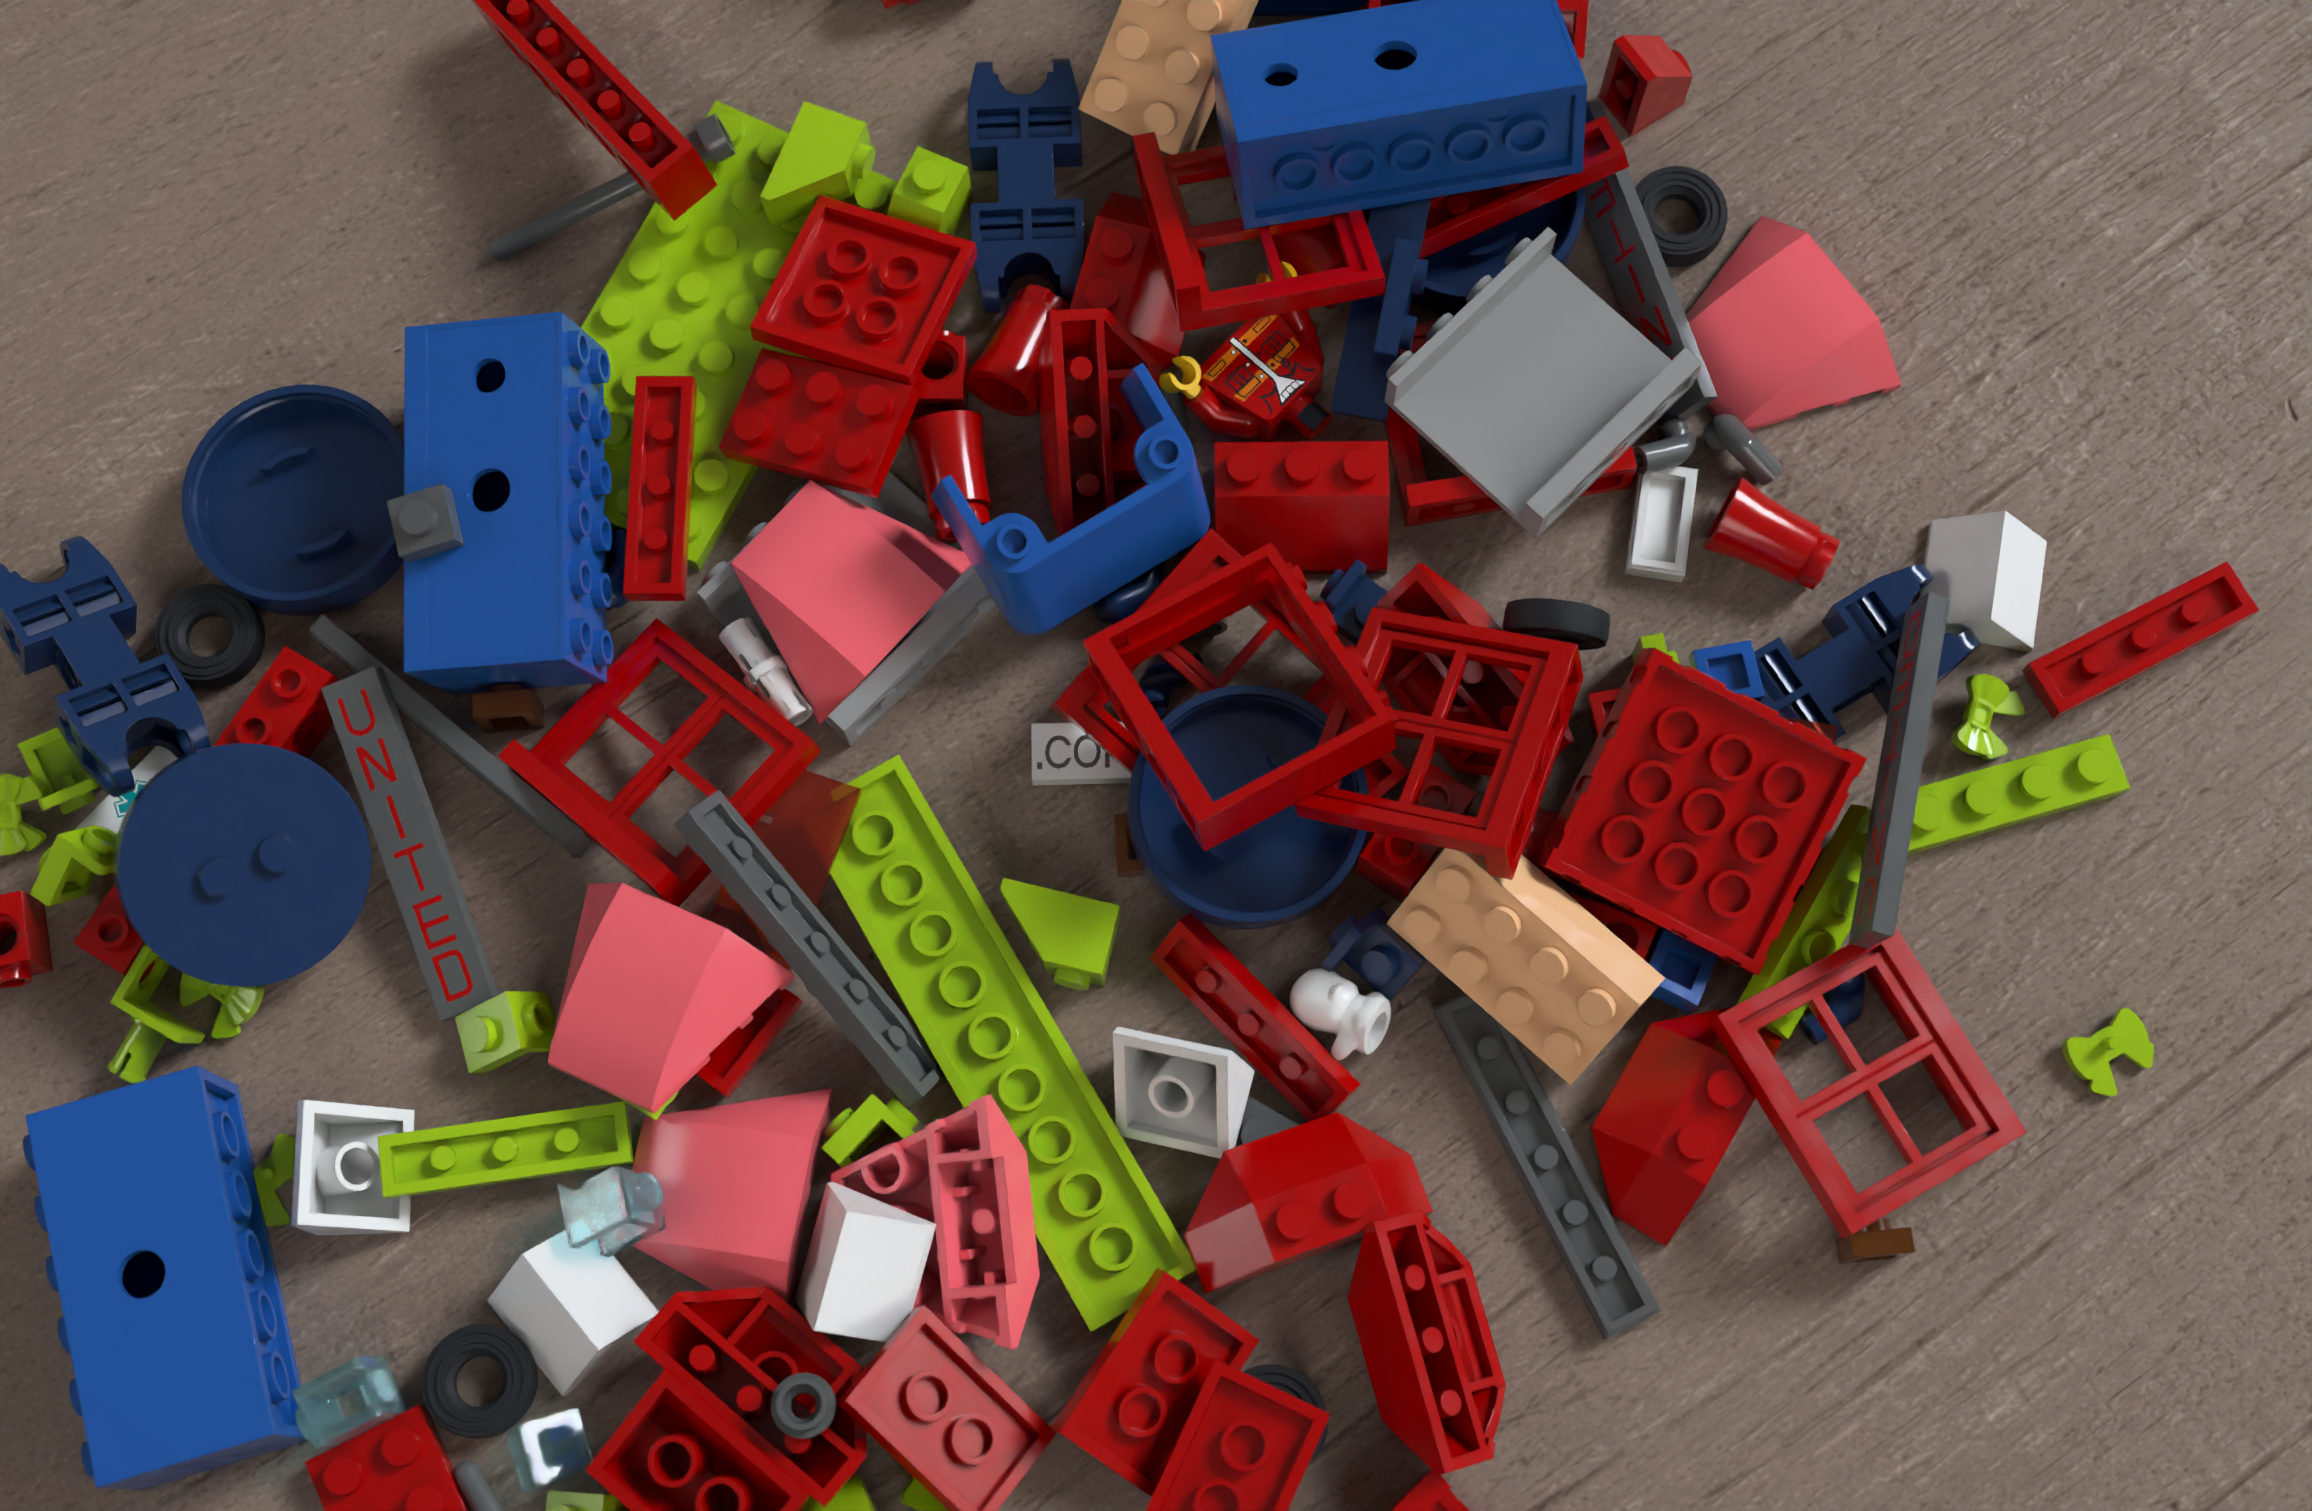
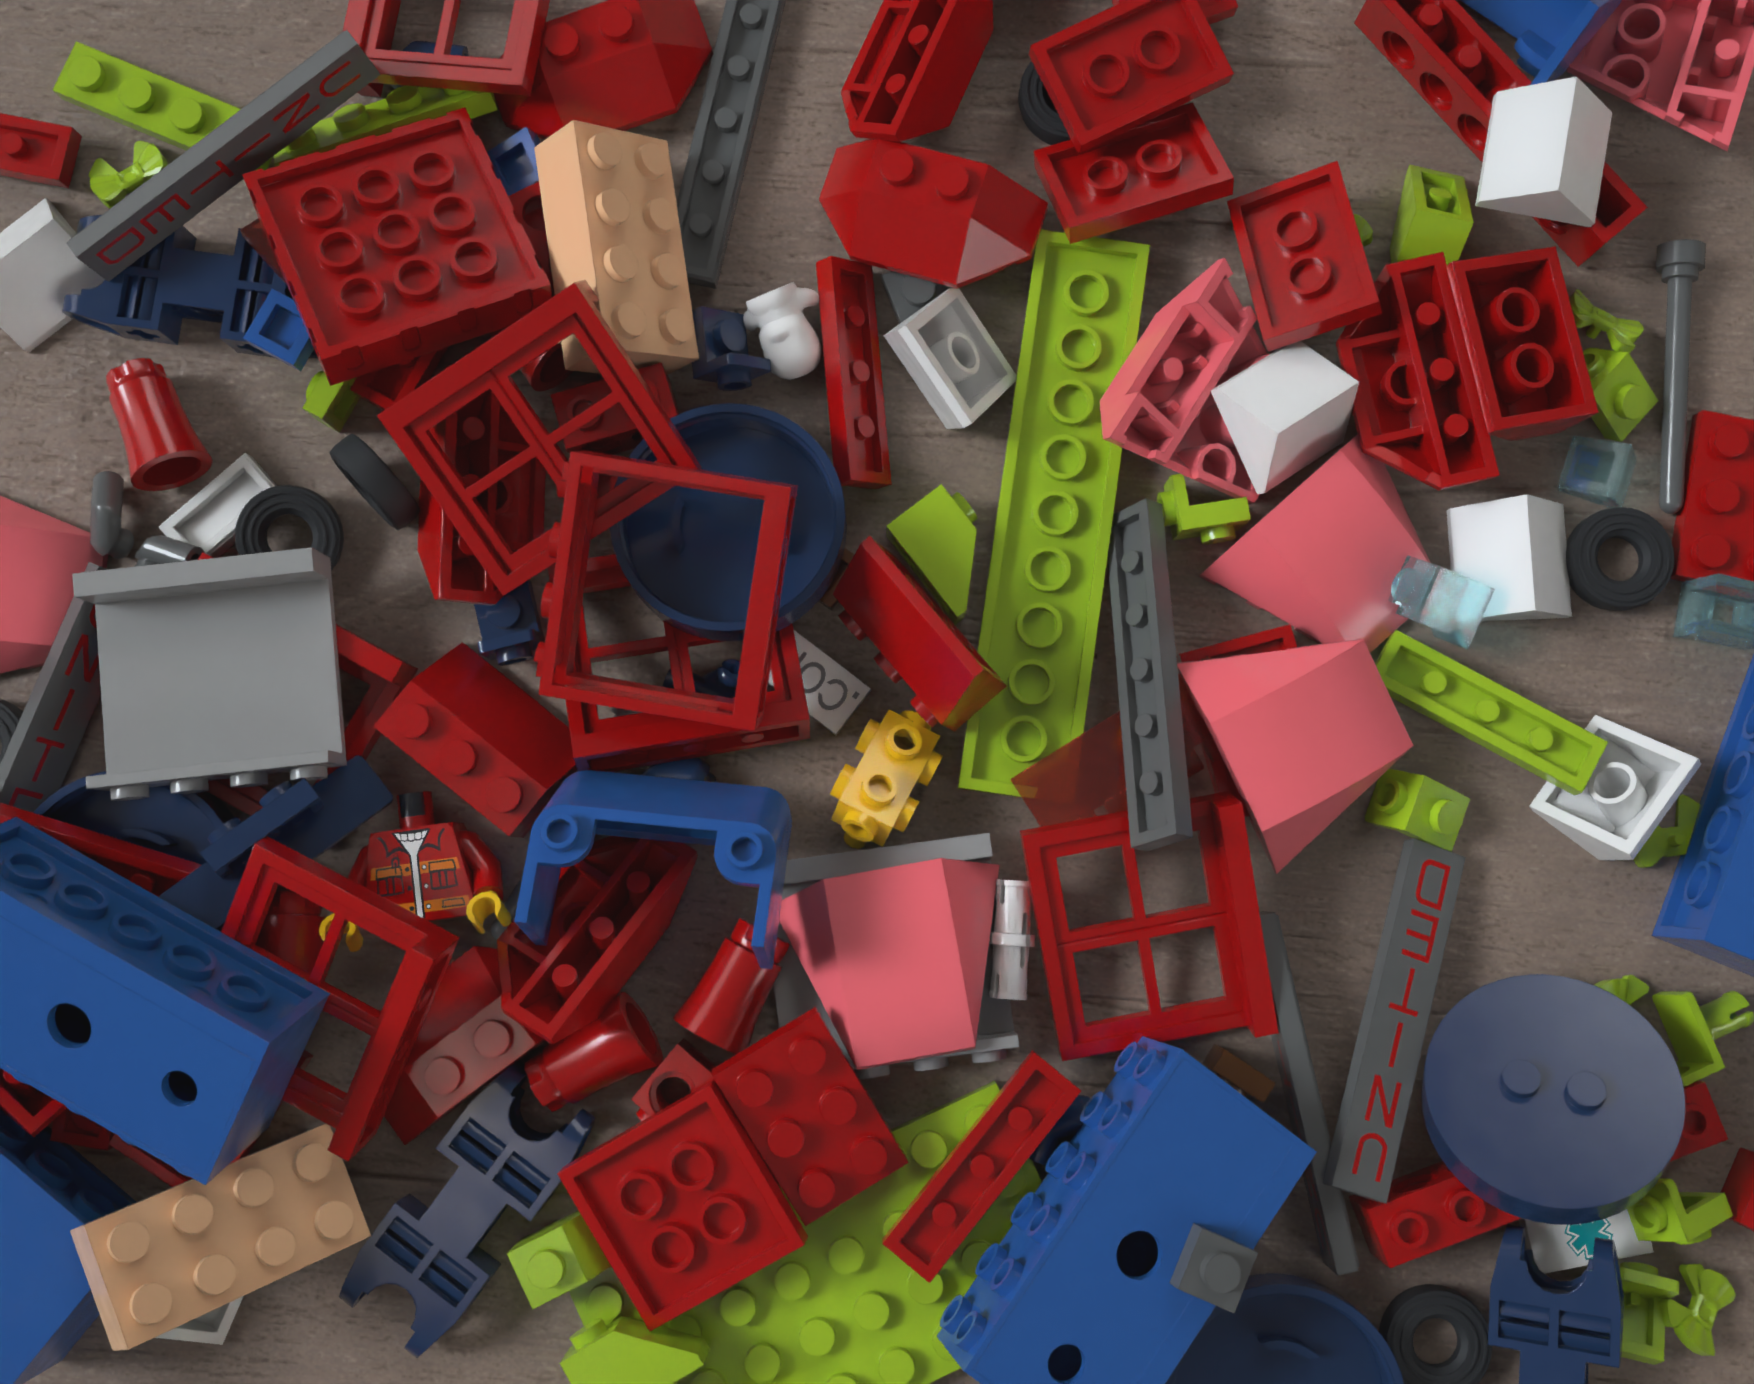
camera: 140 degrees left, 10 degrees up
(786, 1394) = (1417, 312): dark grey plate -> none
(958, 694) = (879, 789): none -> yellow brick
(1021, 836) = (914, 638): none -> red slope
(1609, 566) = (289, 499): none -> black tyre

